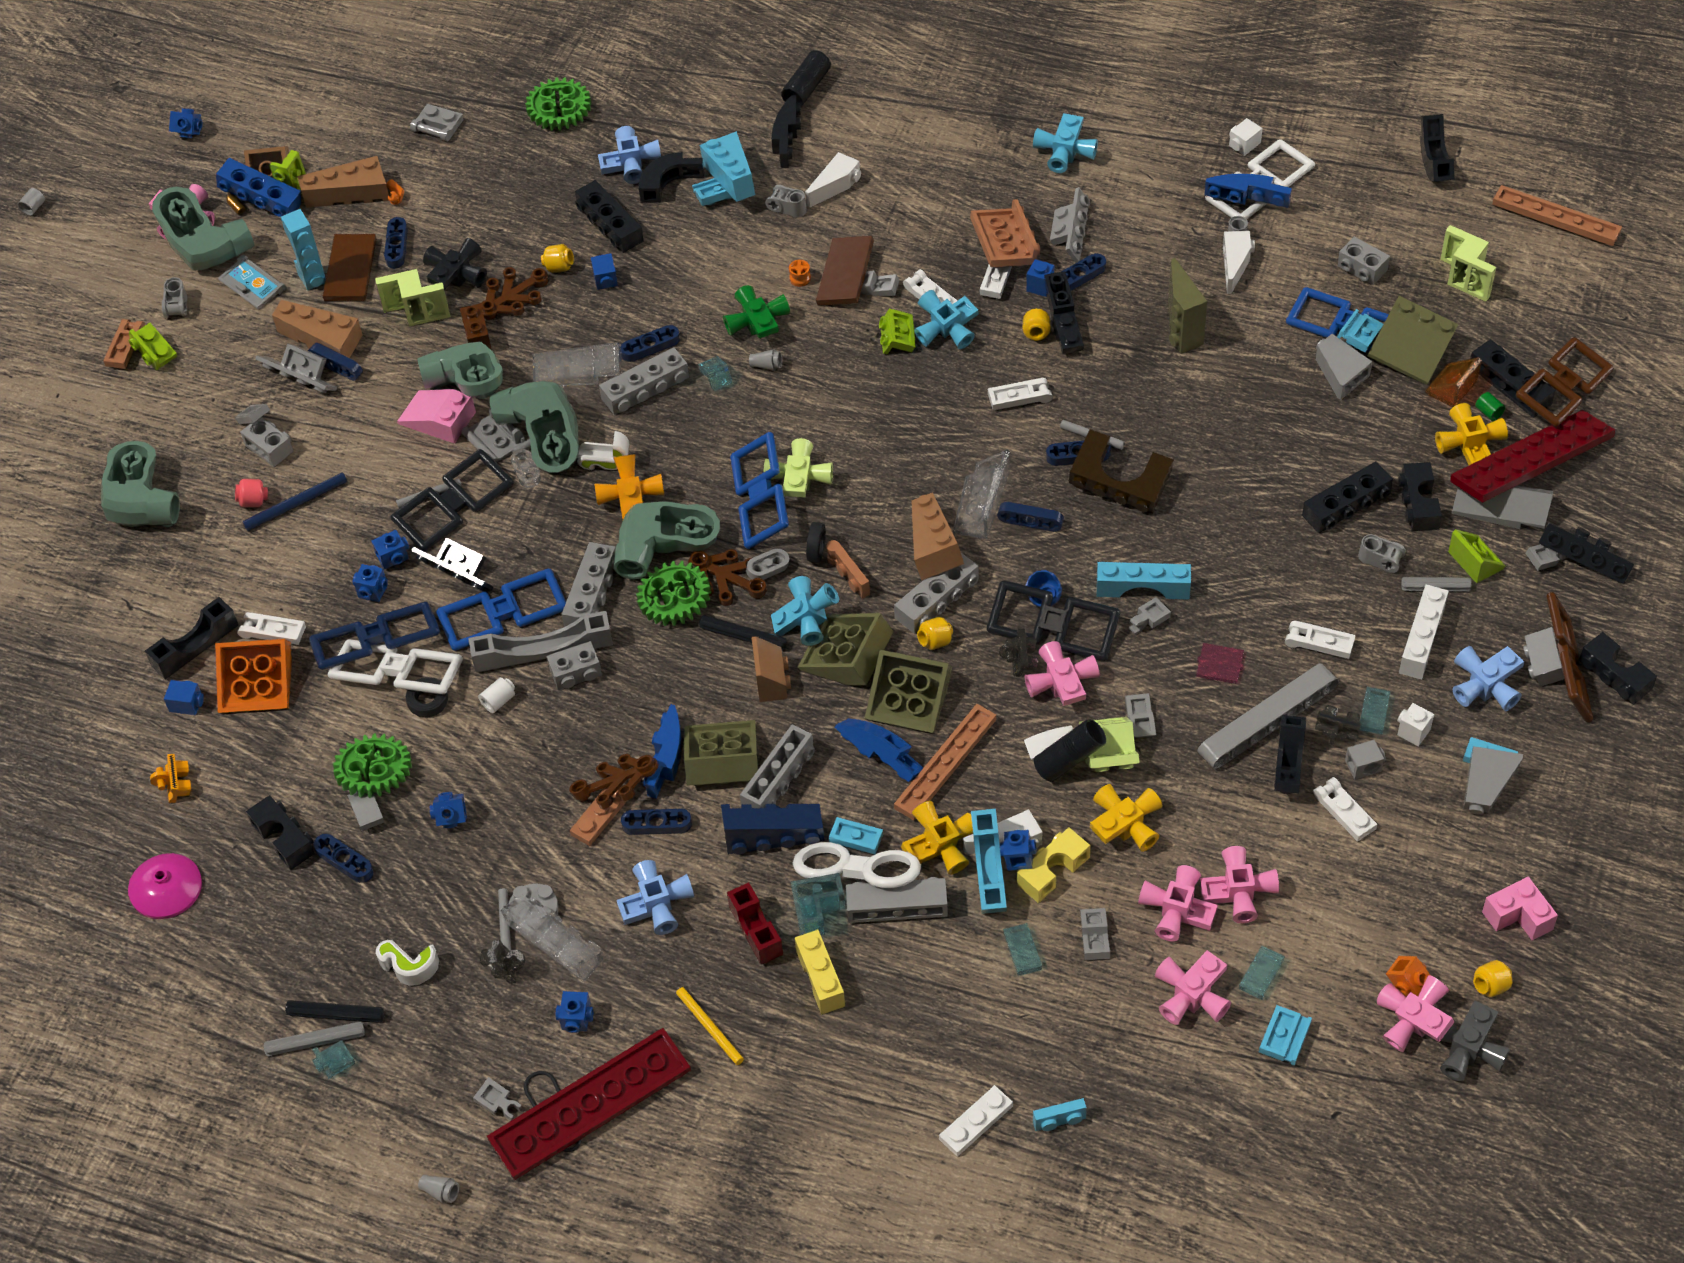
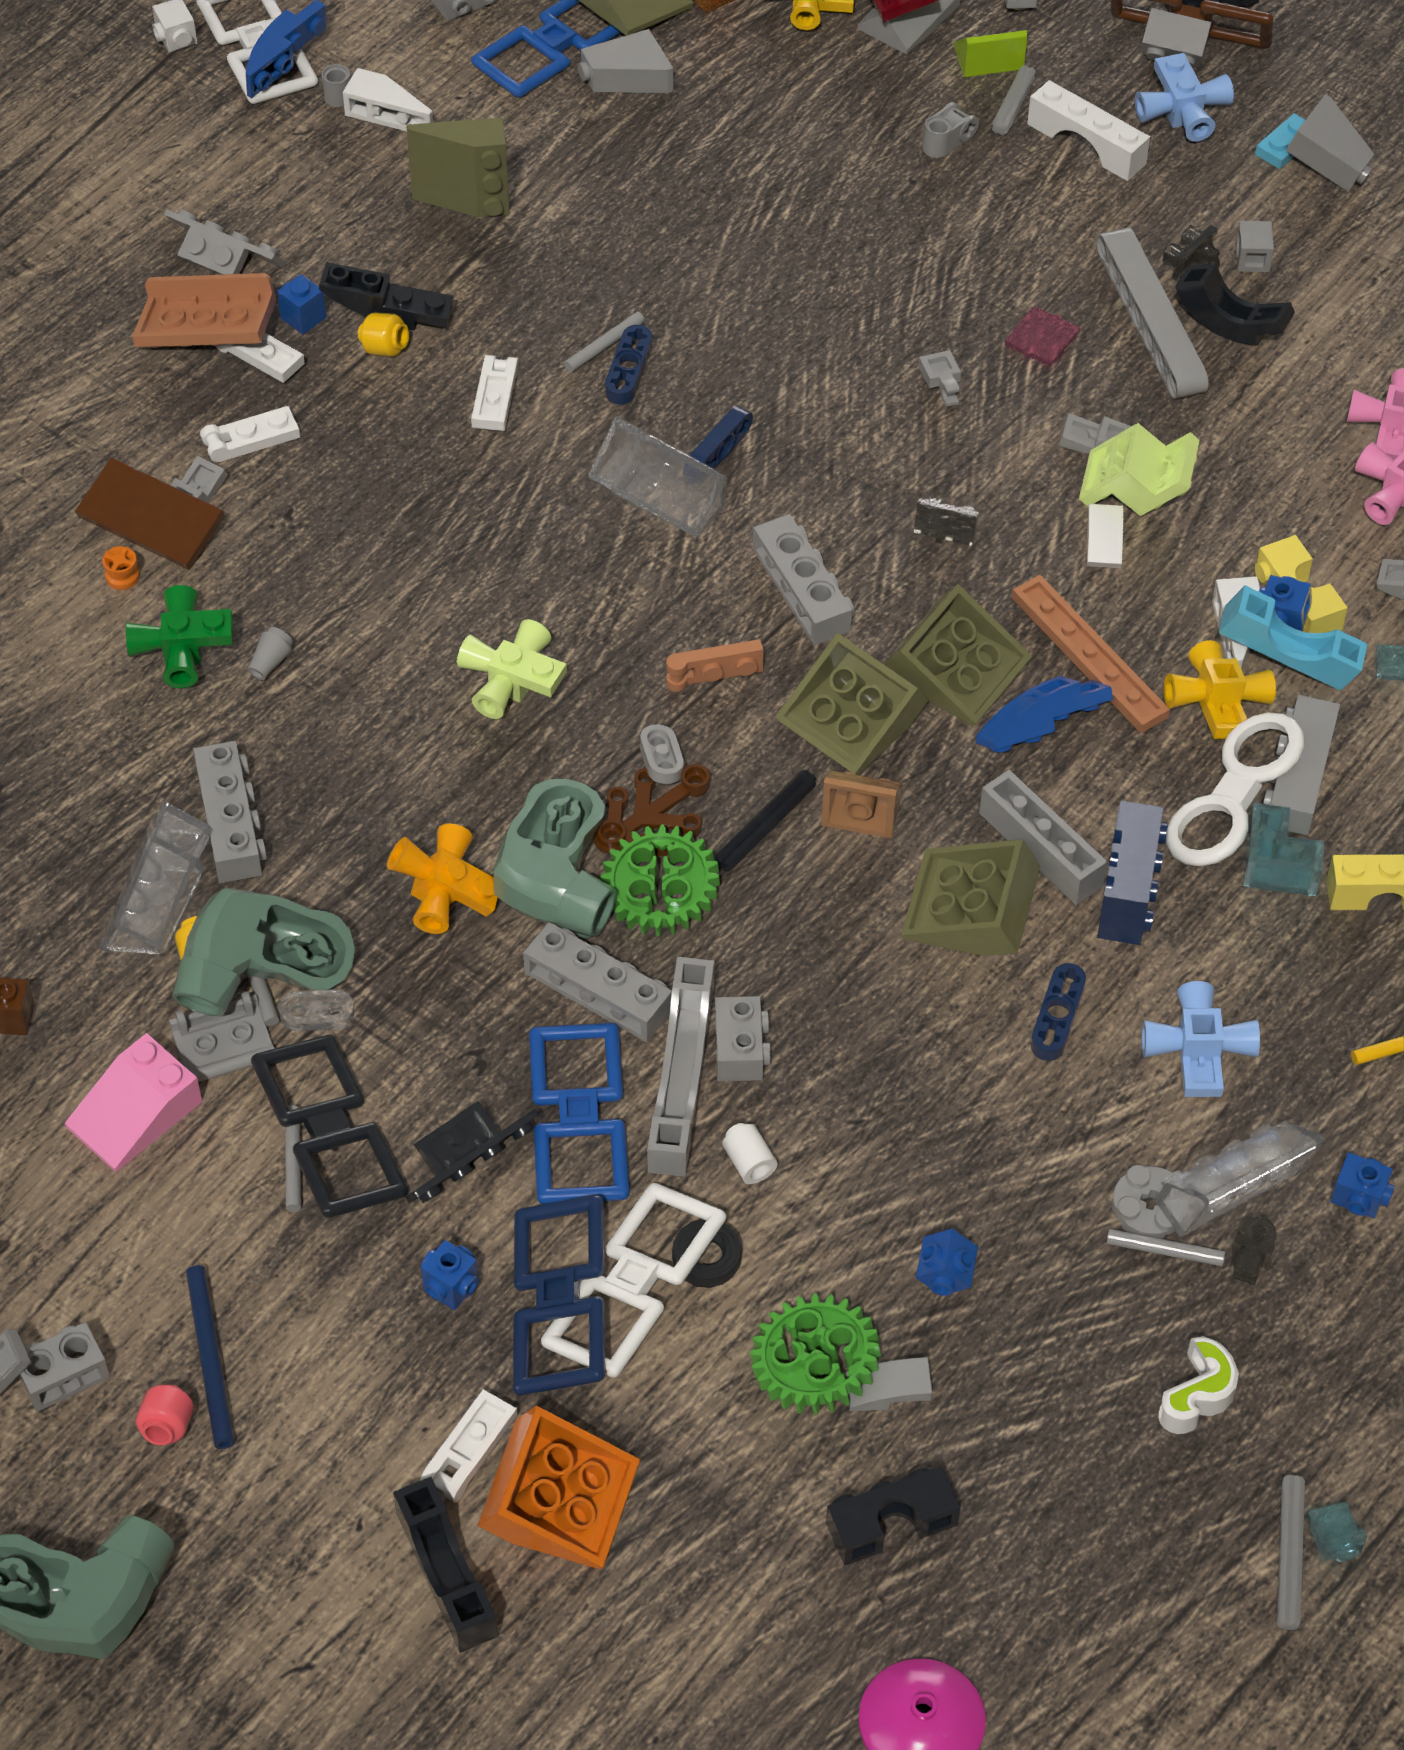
camera: 75 degrees left, 0 degrees up
(173, 769) = (720, 1659): light orange hips -> none
(183, 697) = (557, 1606): blue brick -> none
(334, 1011) = (1249, 1512): black axle -> none
(347, 867) = (975, 1422): dark blue beam -> none
(390, 549) = (396, 1229): blue brick -> none
(467, 366) = (95, 1016): sand green piece -> none
(595, 820) = (1017, 1079): nougat plate -> none
(603, 454) = (355, 887): white animal -> none
(642, 767) = (977, 1027): reddish brown plant -> none
(662, 333) = (140, 777): dark blue beam -> none
(667, 752) = (935, 955): blue slope -> none
(717, 372) = (255, 718): clear light blue bracket -> none
(749, 916) = (1315, 931): dark red arch -> none
(759, 490) = (523, 723): blue bar -> none
(805, 610) = (774, 728): medium azure brick -> none
(816, 542) = (662, 671): black tyre -> none
(856, 835) = (1174, 783): medium azure plate -> none
(897, 331) = (303, 491): lime bracket -> none
(932, 538) = (722, 541): medium nougat wedge -> none
(935, 633) = (873, 600): yellow head -> none
(946, 319) = (321, 426): medium azure brick -> none
(1046, 581) = (855, 463): blue hair -> none
(1054, 619) = (908, 470): black bar -> none
(1062, 675) = (1010, 486): bright pink brick -> none
(1065, 143) = (67, 201): medium azure brick -> none
(1070, 750) = (1150, 516): black piece -> none
(1084, 266) = (312, 256): dark blue beam -> none
(1119, 577) = (874, 379): medium azure arch -> none
(1125, 817) = (1259, 491): yellow brick -> none
(1139, 493) = (685, 355): dark brown arch -> none
(1320, 639) = (1053, 228): white plate -> none
(1345, 809) = (1316, 290): white plate -> none
(1347, 497) = (846, 129): black brick -> none
(1360, 330) = (588, 24): medium azure plate -> none
(1374, 710) = (1174, 215): clear light blue tile -> none
(1415, 724) = (1223, 183): white brick -> none
(1421, 512) = (897, 74): black arch -> none

